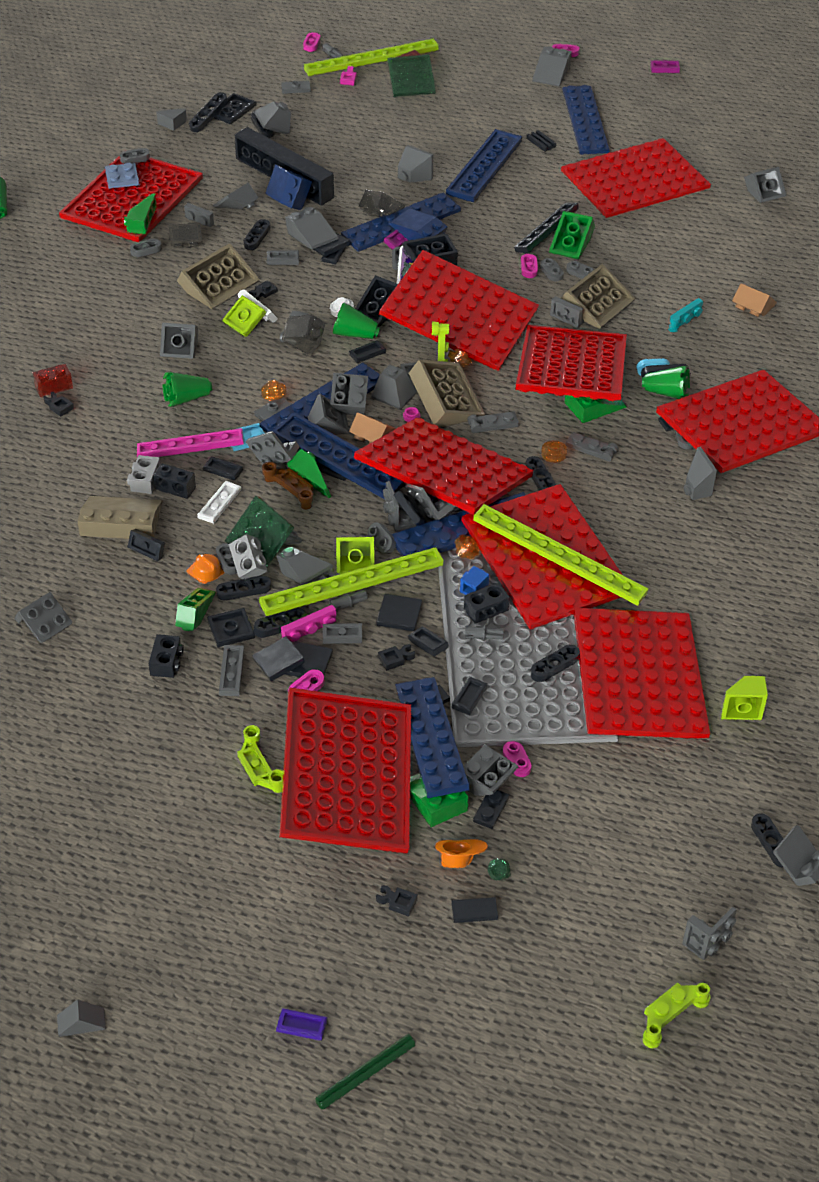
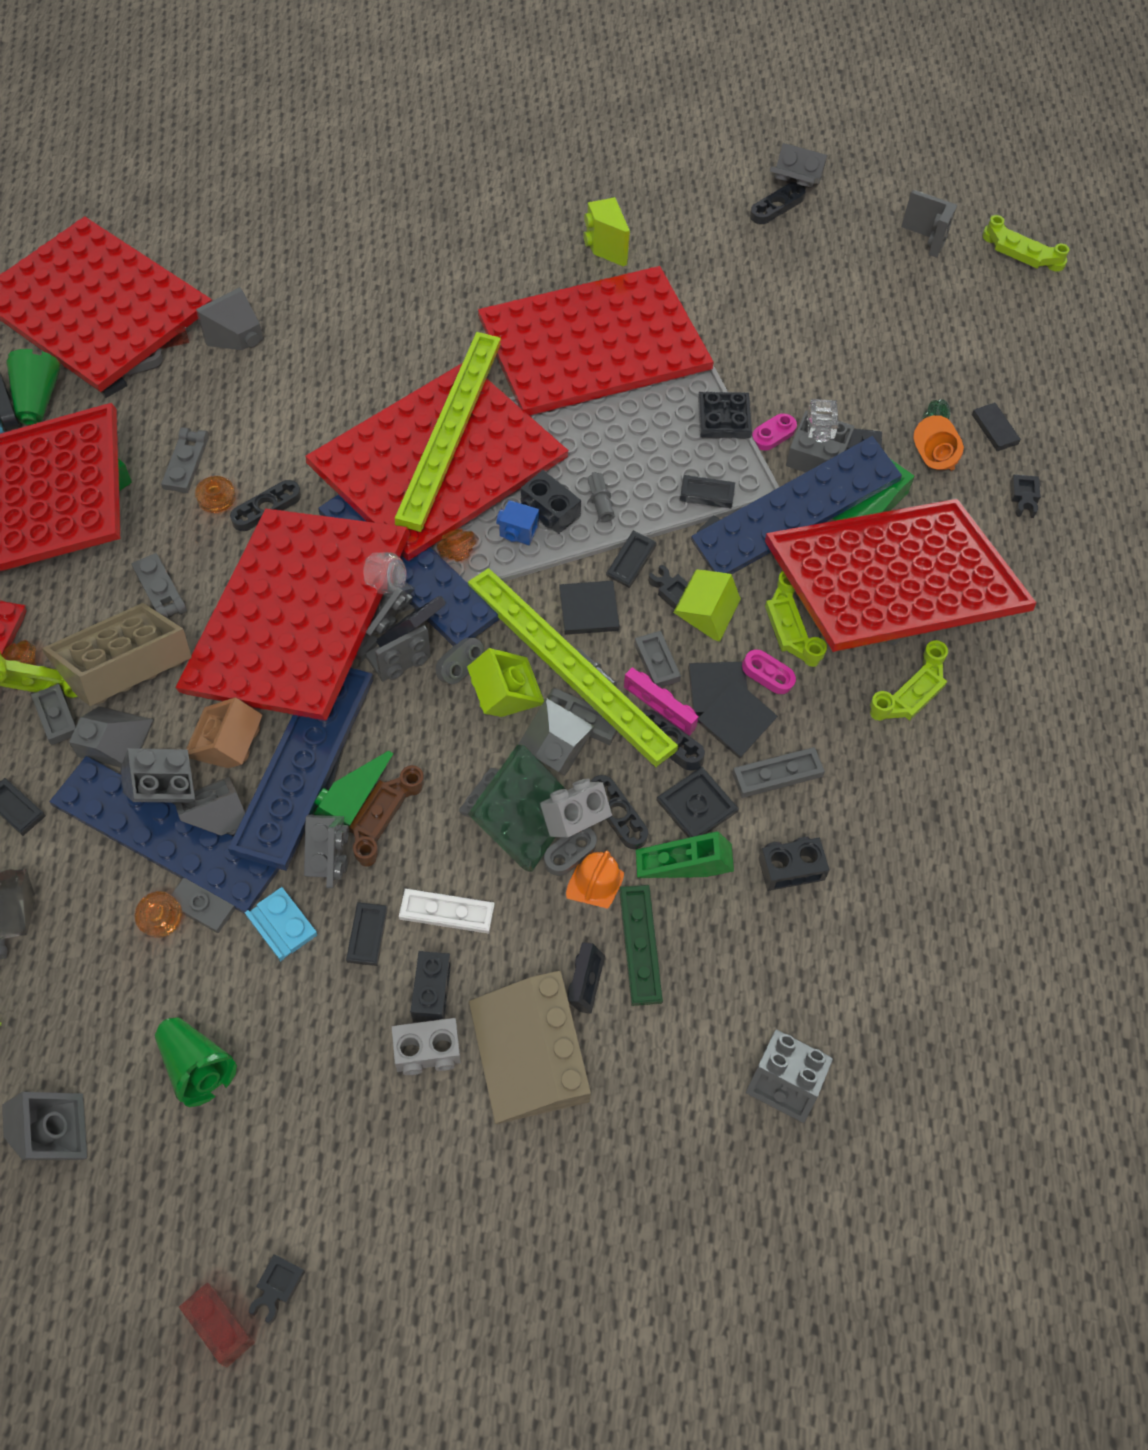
camera: 110 degrees left, 15 degrees up
(155, 577) = (640, 945): none -> dark green tile
(191, 443) = (330, 1003): dark pink tile -> none
(371, 668) = (709, 602): none -> lime slope
(411, 413) = (169, 697): dark pink plate -> none
(441, 490) = (385, 572): none -> clear hair
(493, 756) = (822, 426): none -> clear brick
(538, 727) = (724, 415): none -> black tile
(551, 670) = (624, 426): black beam -> none

